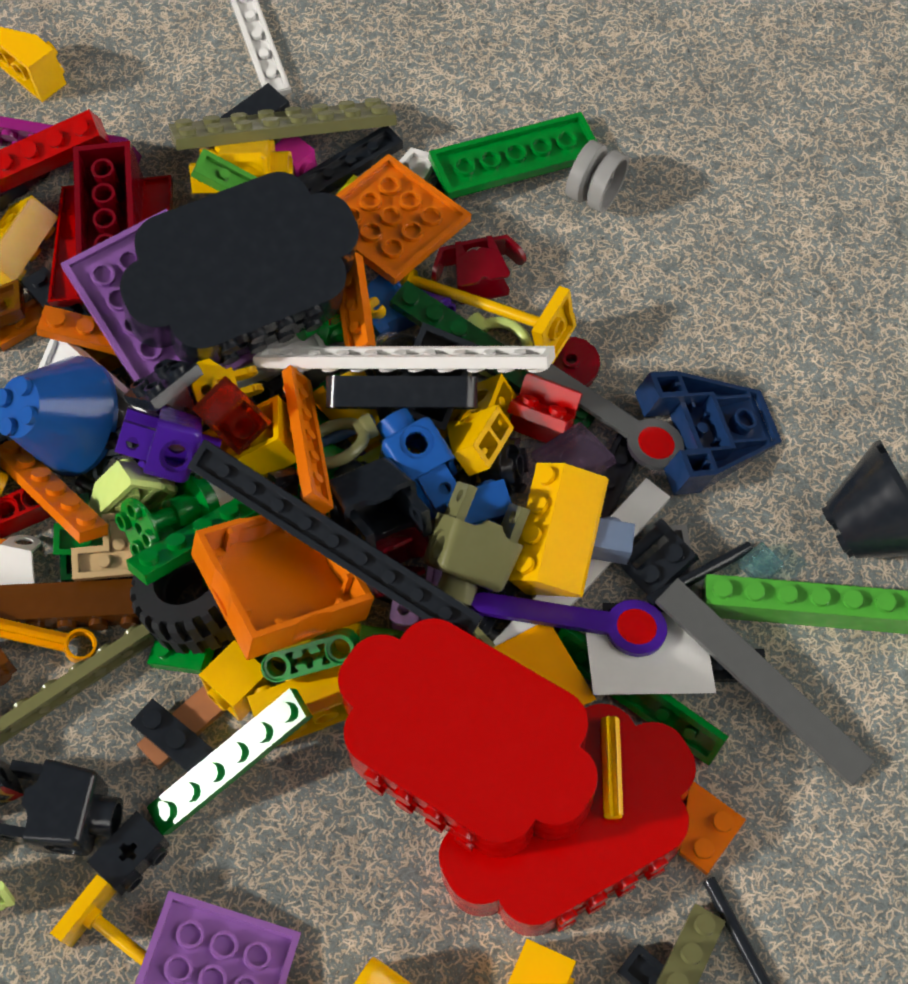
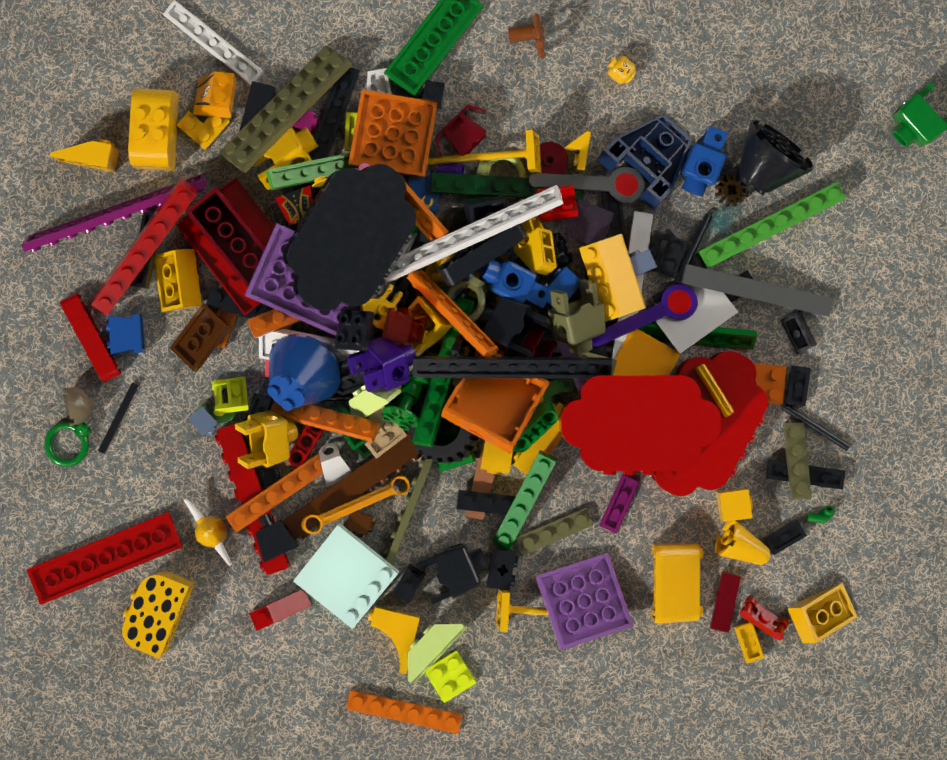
camera: 35 degrees left, 25 degrees up
(116, 69) = (153, 129): none -> yellow brick
(169, 108) = (205, 132): none -> yellow plate
(219, 81) = (215, 95): none -> light orange slope
(246, 849) = (554, 531): none -> olive plate
(368, 870) = (619, 503): none -> magenta tile
(479, 204) = (434, 92): none -> black brick
(597, 176) = (493, 29): light grey wheel -> none
(621, 366) = (580, 145): none -> yellow slope
(643, 209) = (529, 32): none -> dark orange piece
(734, 307) = (621, 69): none -> yellow head
(748, 859) = (798, 385): none -> black plate
(780, 479) = (707, 154): none -> blue piece
(793, 782) = (798, 332): none -> black slope
(795, 539) = (723, 190): none -> dark brown gear

